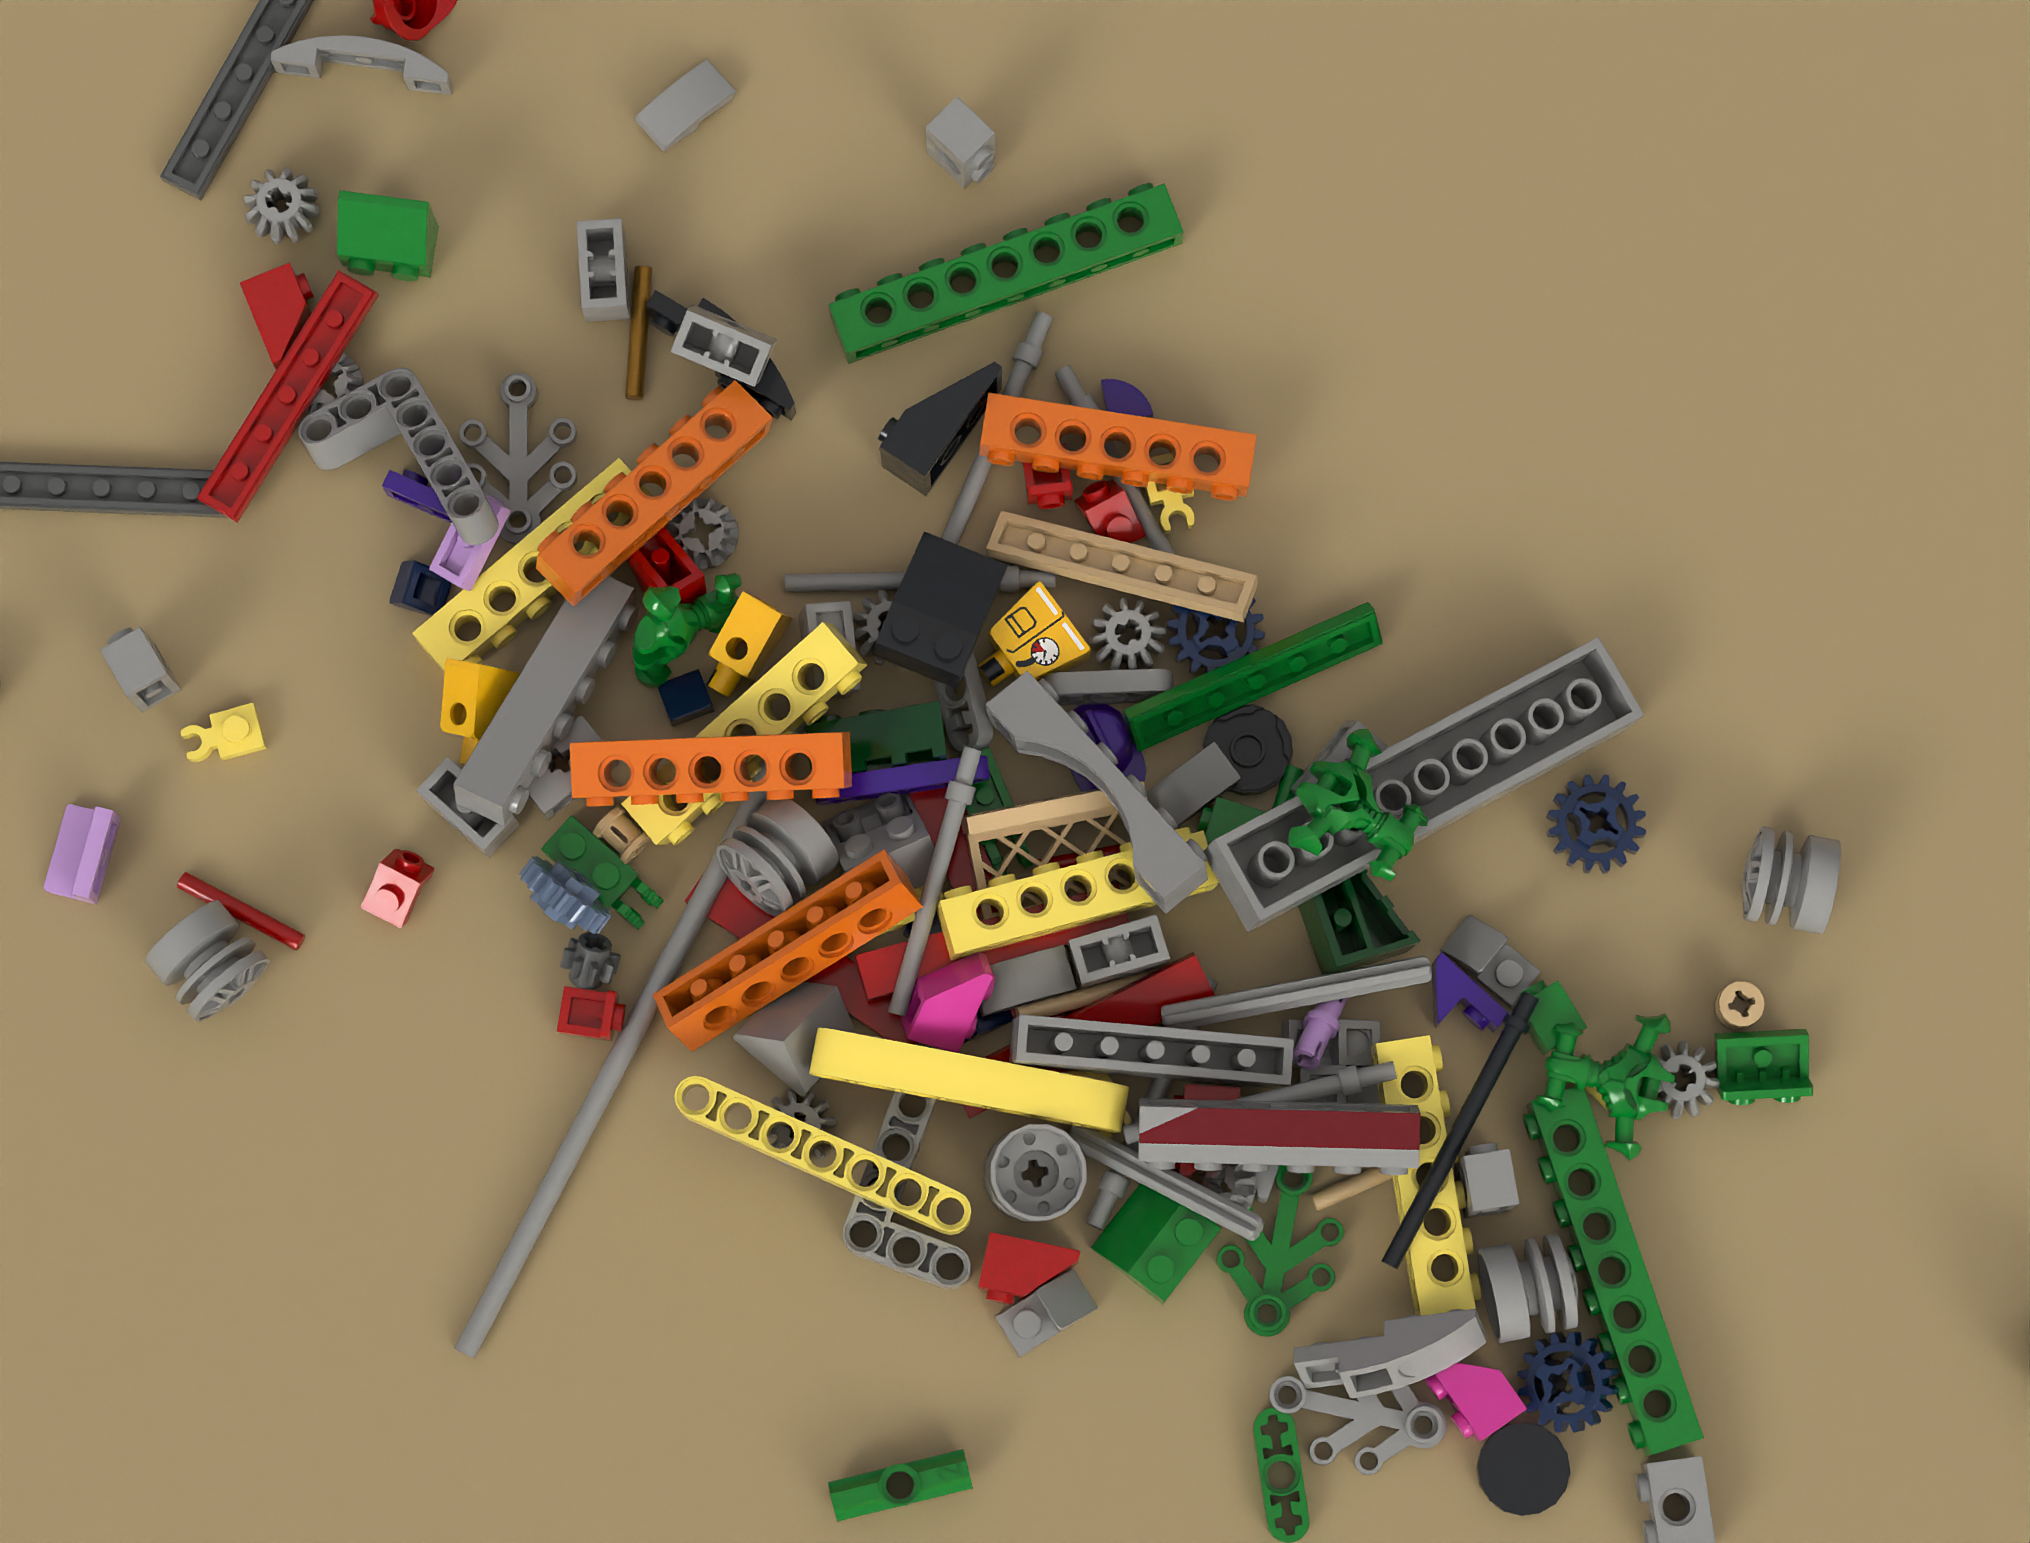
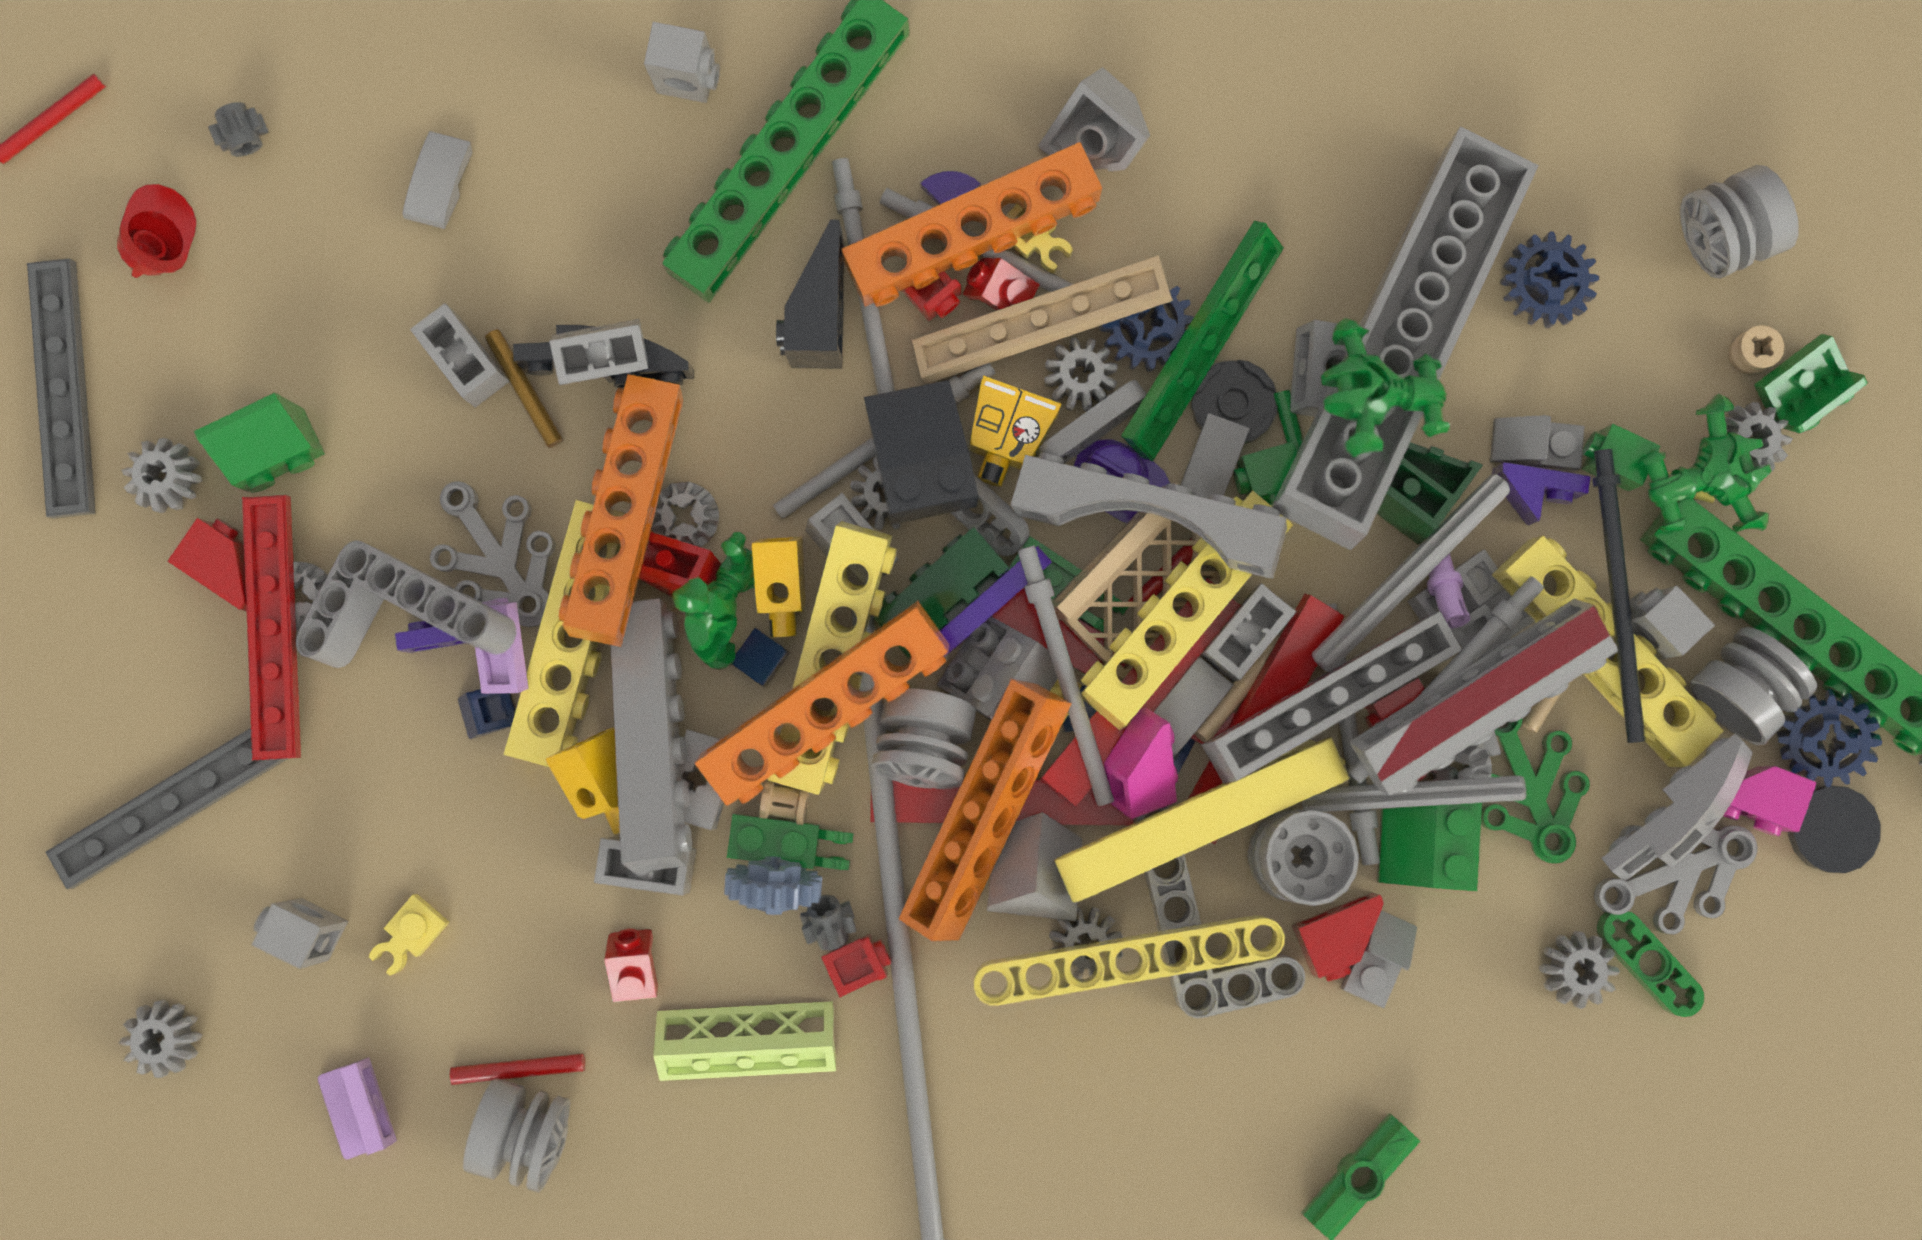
camera: 30 degrees left, 5 degrees up
(307, 58) = (102, 339): light grey slope -> none
(445, 1022) = (737, 1055): none -> yellowish green fence
(1197, 1430) = (1591, 959): none -> light grey gear
(1291, 429) = (1103, 119): none -> light grey slope

